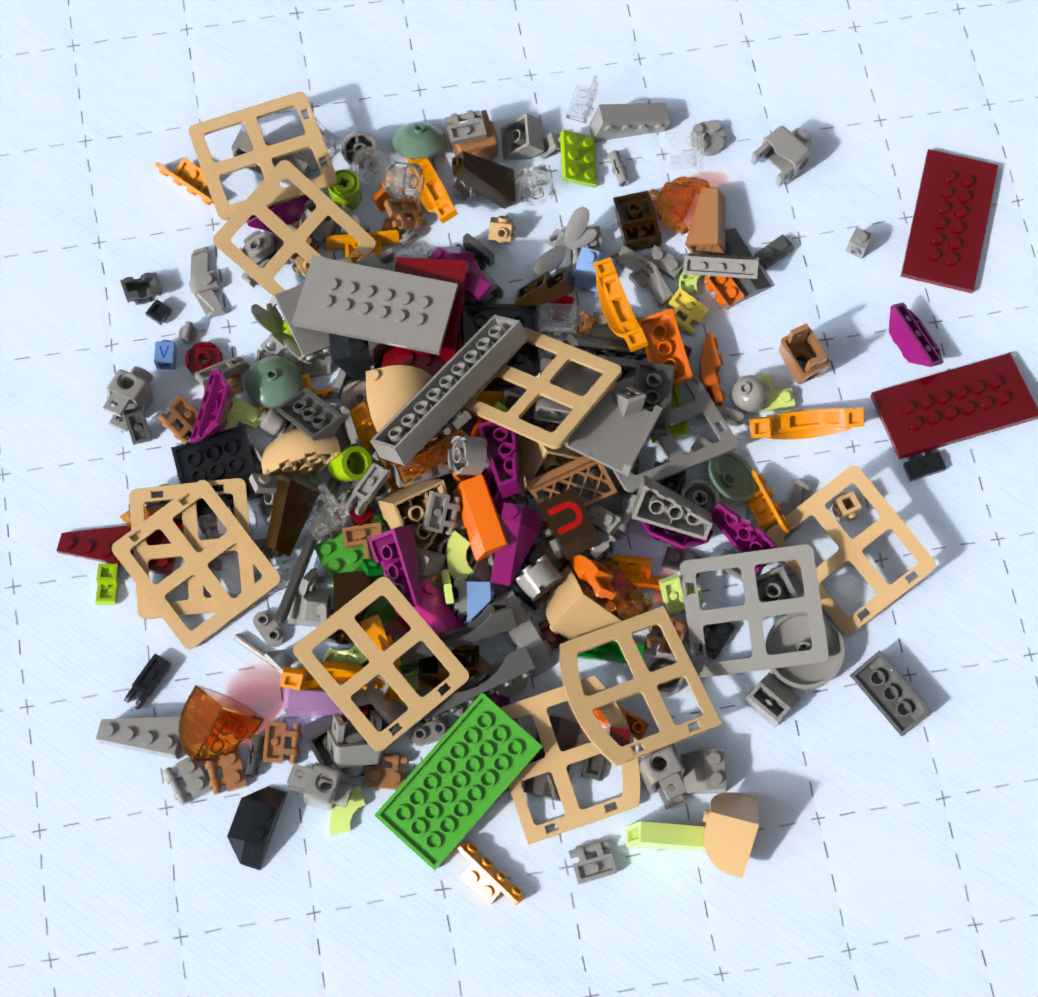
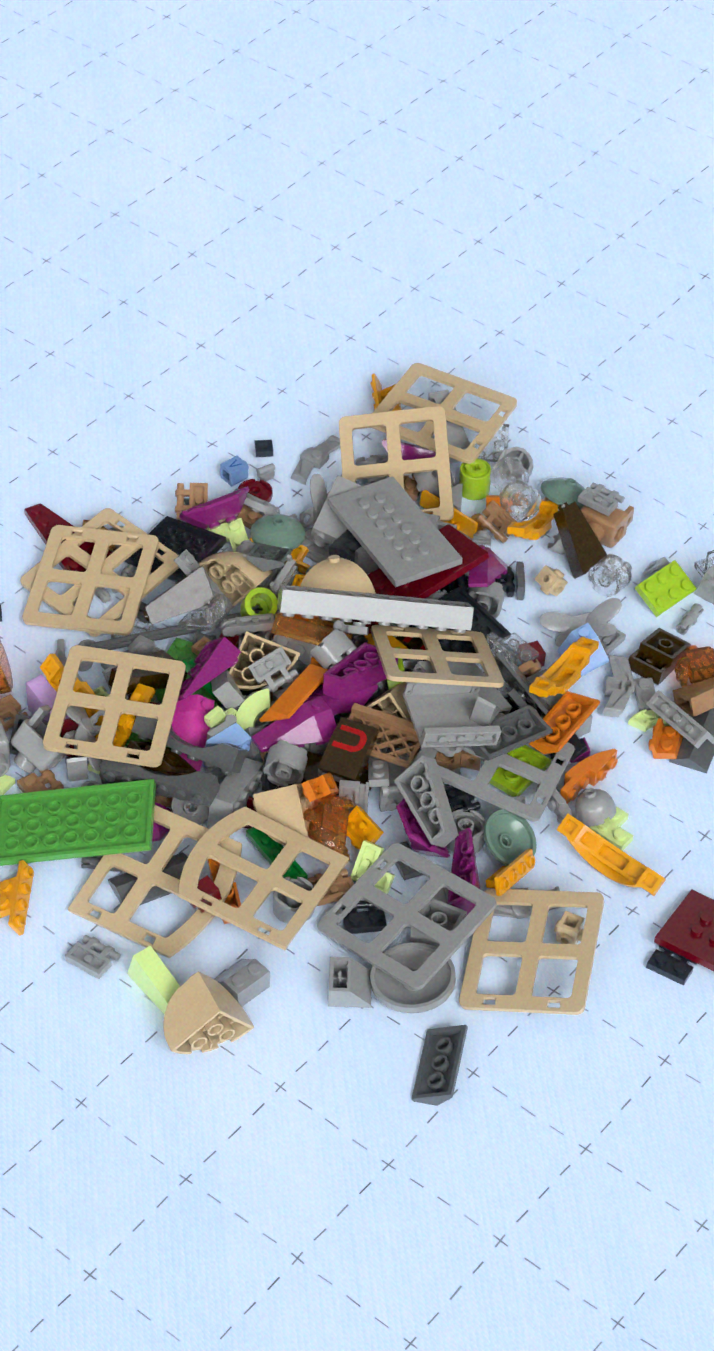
camera: 50 degrees right, 25 degrees down
(107, 584) = (29, 550): lime slope -> none
(127, 387) = (181, 465): light grey piece -> none
(137, 425) = (162, 486): dark grey plate -> none
(141, 289) = (267, 427): dark grey cylinder -> none
(522, 138) = (644, 549): light grey slope -> none
(546, 289) = (533, 629): dark brown slope -> none
(593, 767) = (175, 910): dark grey tile -> none
(666, 781) = (206, 934): light grey piece -> none
(689, 307) = (623, 725): light yellow plate -> none
(803, 345) = (661, 821): medium nougat piece -> none

